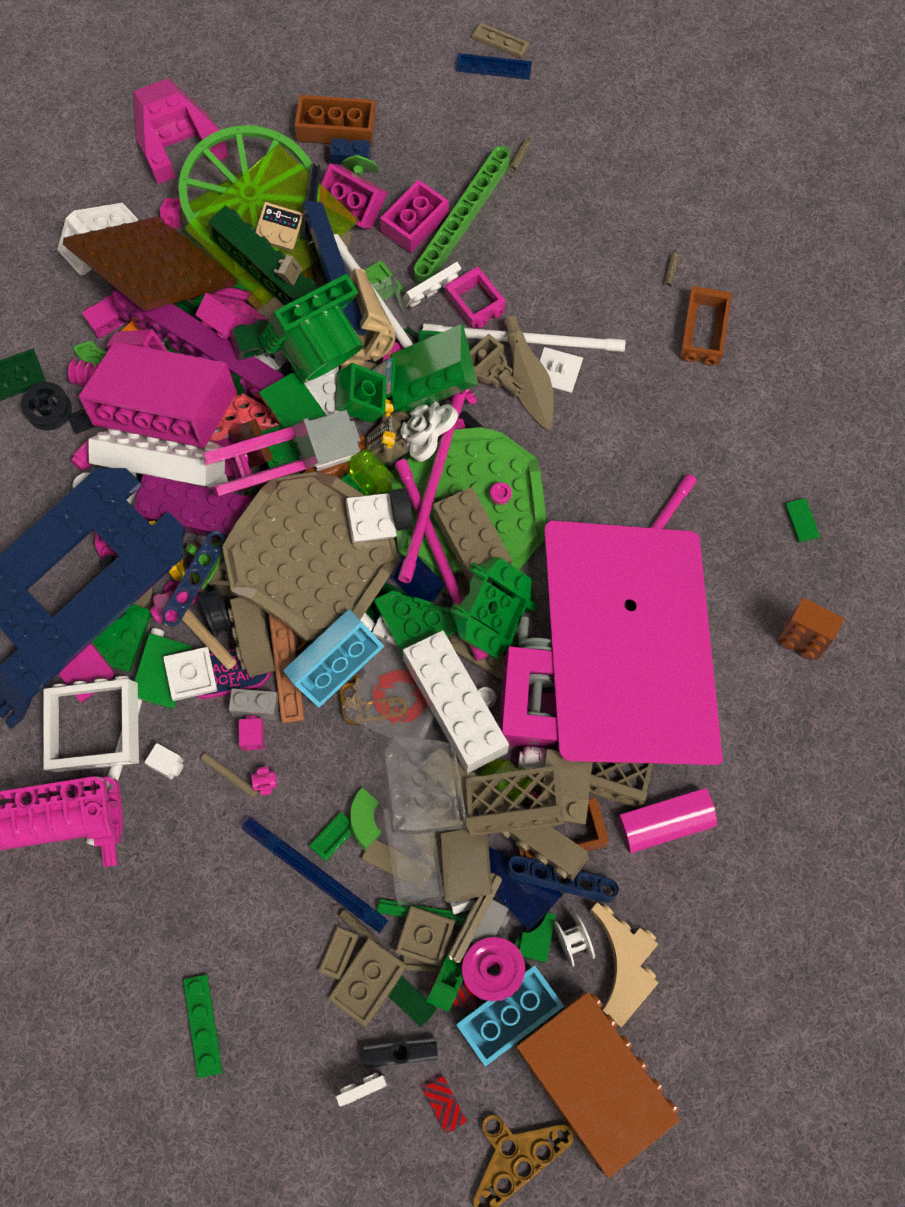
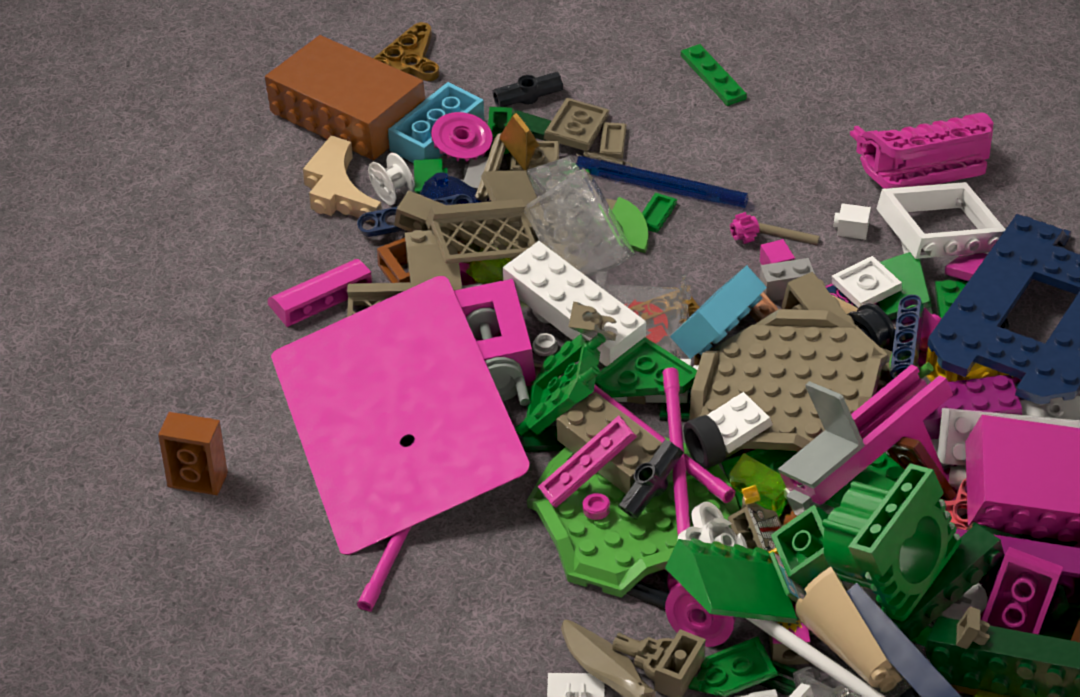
camera: 165 degrees right, 25 degrees down
(351, 1092) = (551, 53): white plate -> none
(423, 583) = (654, 413): clear blue brick -> none
(437, 942) = (519, 141): none -> pearl gold slope
(444, 1105) = (476, 75): tile -> none
(455, 483) = (650, 479): none -> black piece
(455, 630) = (590, 322): none -> dark tan hinge
(499, 511) = (587, 461): none -> dark pink tile
(802, 520) = (214, 594): green tile -> none

